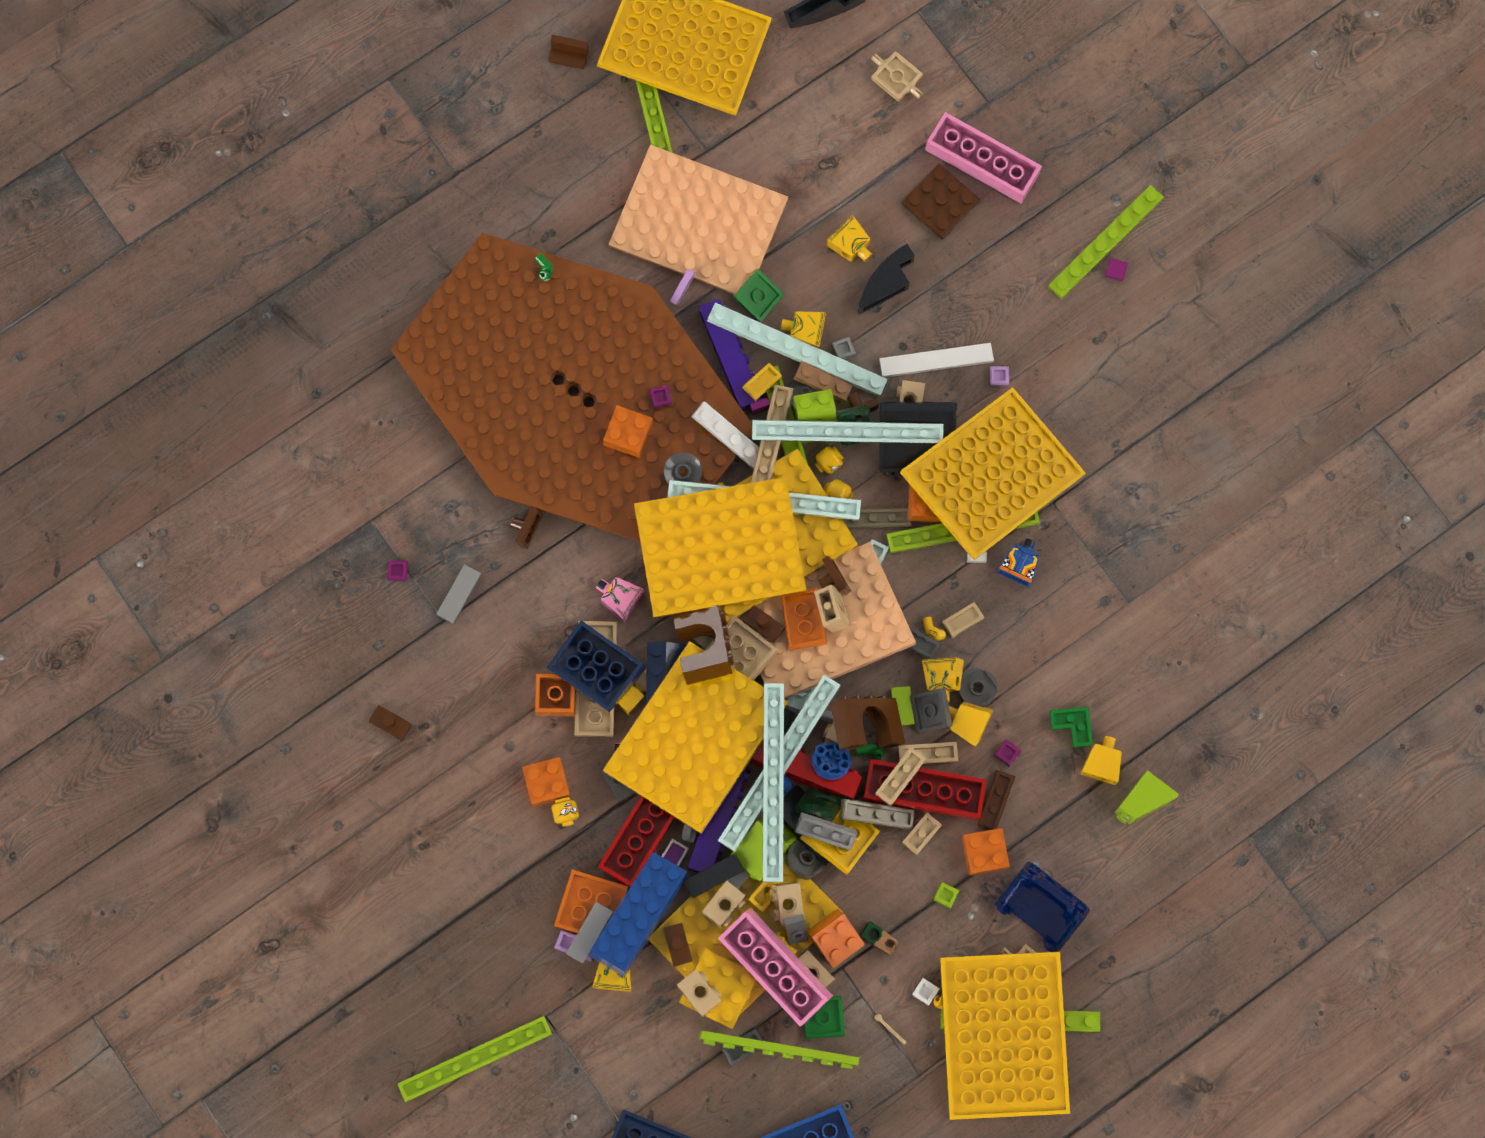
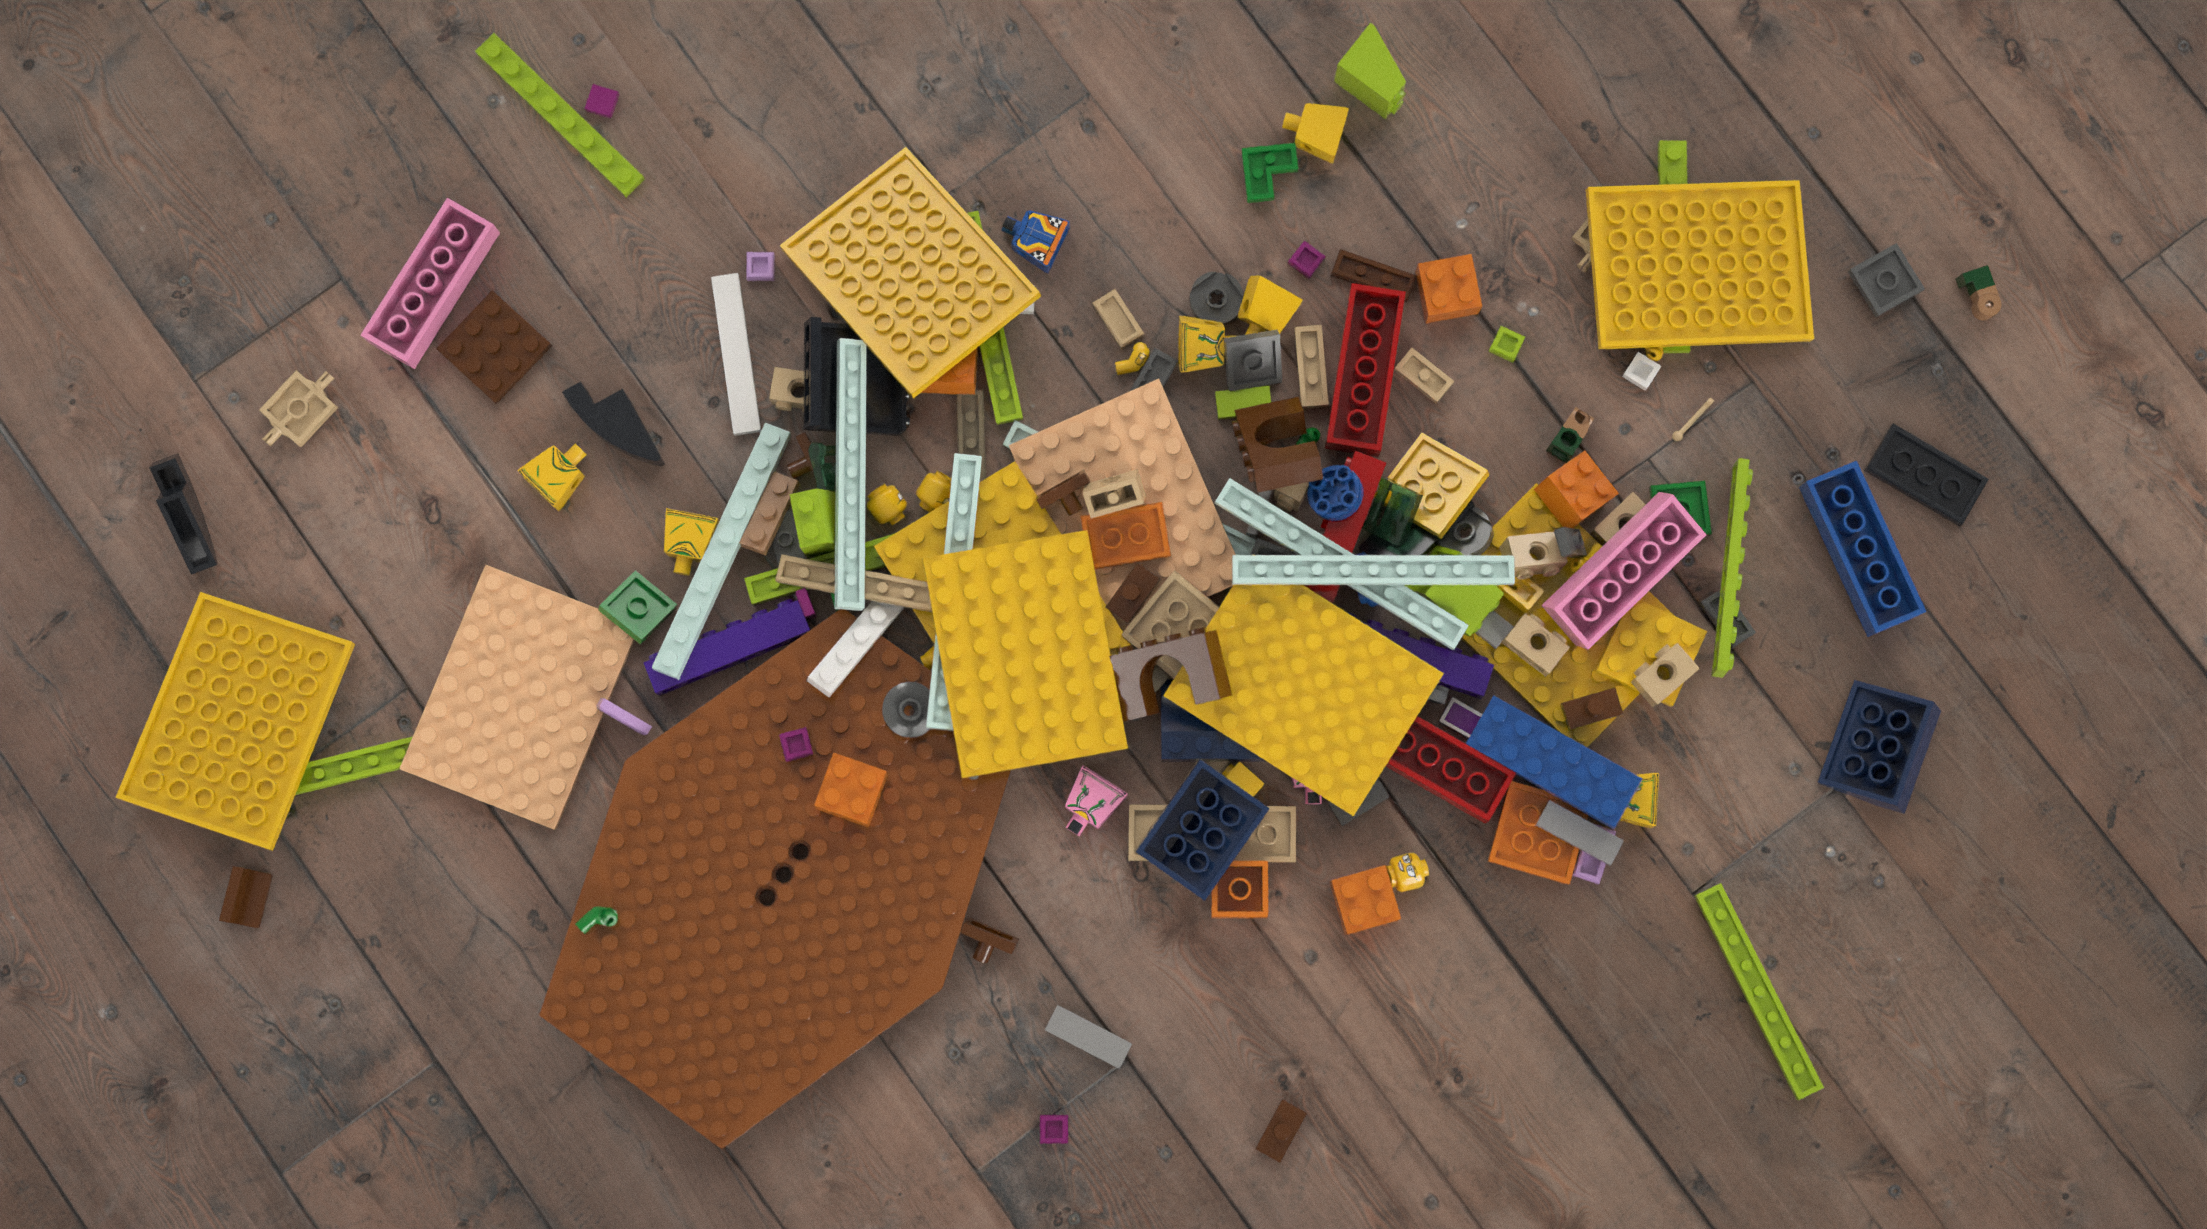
camera: 85 degrees left, 5 degrees up
(714, 875) = (1496, 657): black tile -> none
(762, 381) = (771, 598): yellow tile -> none
(825, 831) = (1433, 501): light grey tile -> none
(843, 348) = (717, 485): light grey tile -> none
(877, 814) = (1402, 435): dark tan tile -> none
(900, 776) = (1352, 398): tan plate -> none
(1043, 906) = (1521, 210): clear blue windscreen -> none

